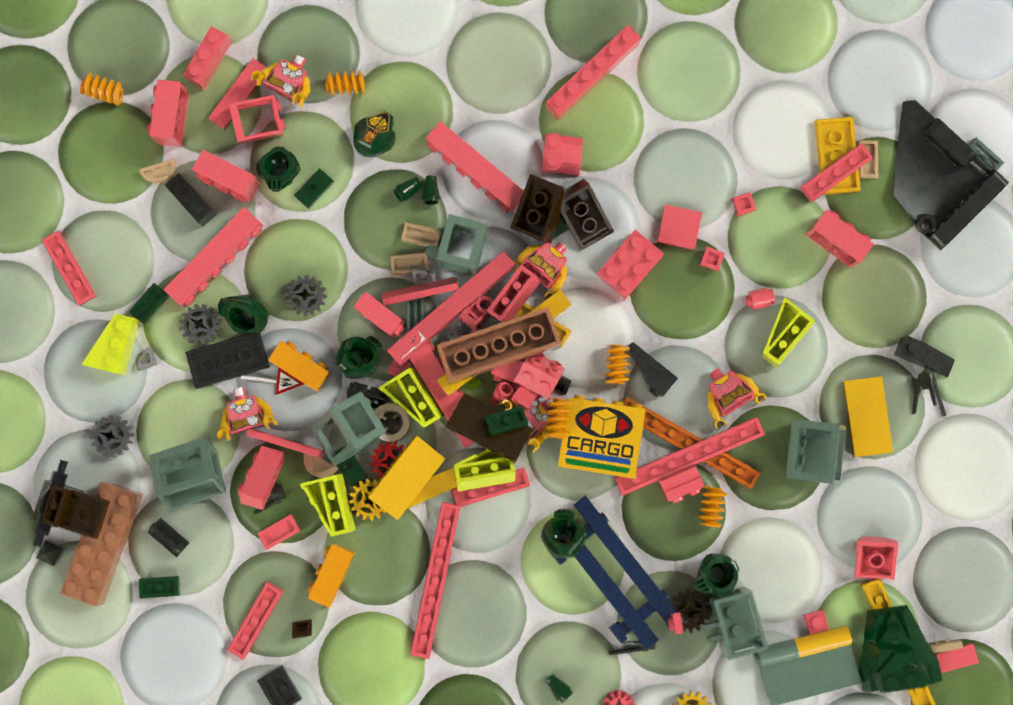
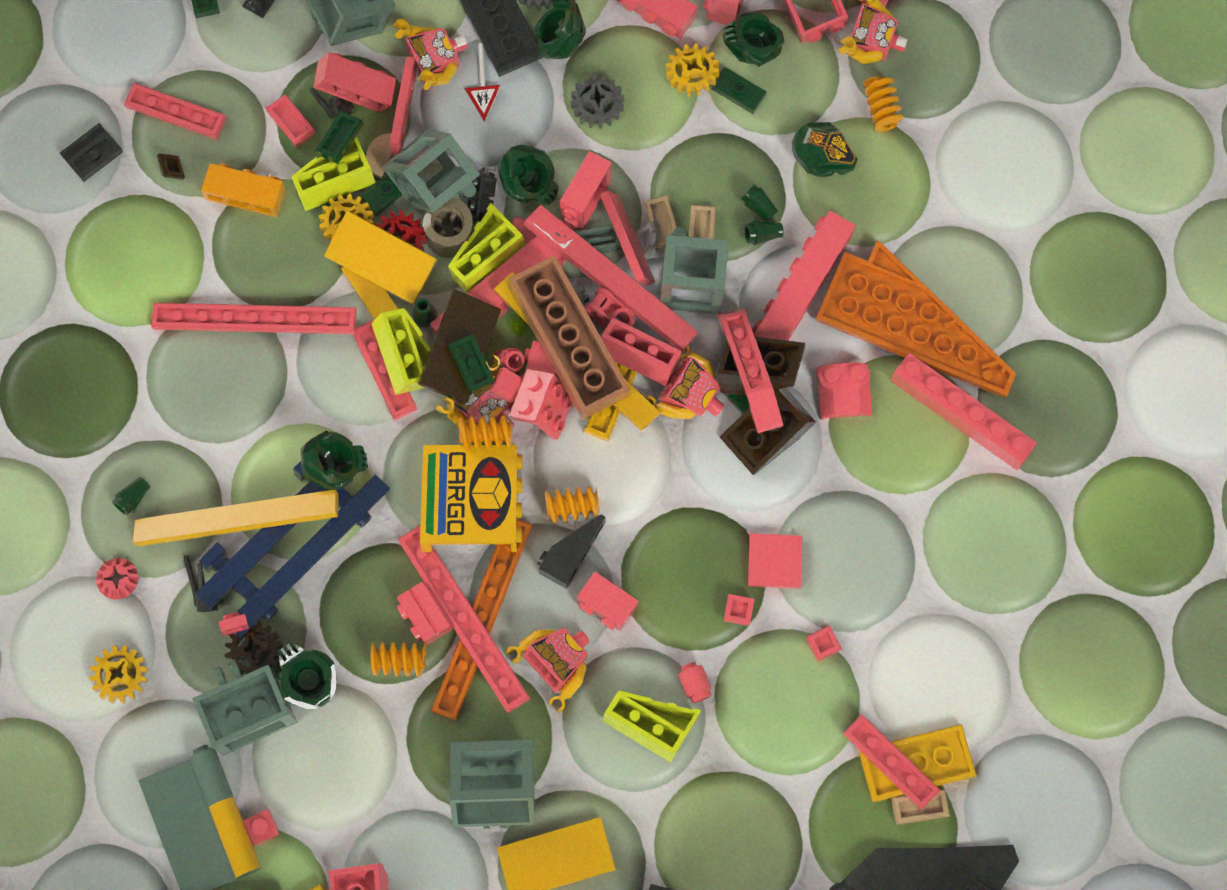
camera: 80 degrees right, 10 degrees down
(288, 226) = (692, 70): none -> yellow gear
(300, 365) = (505, 109): light orange brick -> none
(307, 495) = (339, 137): none -> dark green plate
(457, 455) = (424, 312): none -> dark green cone
(509, 105) = (898, 313): none -> orange wing
(540, 216) = (751, 369): none -> coral slope
(562, 385) = (533, 436): pearl dark grey slope -> none
(592, 612) = (236, 518): none -> yellow tile
(630, 264) = (710, 499): coral brick -> none
(692, 351) = (606, 602): none -> coral brick
(840, 238) = (798, 776): coral brick -> none

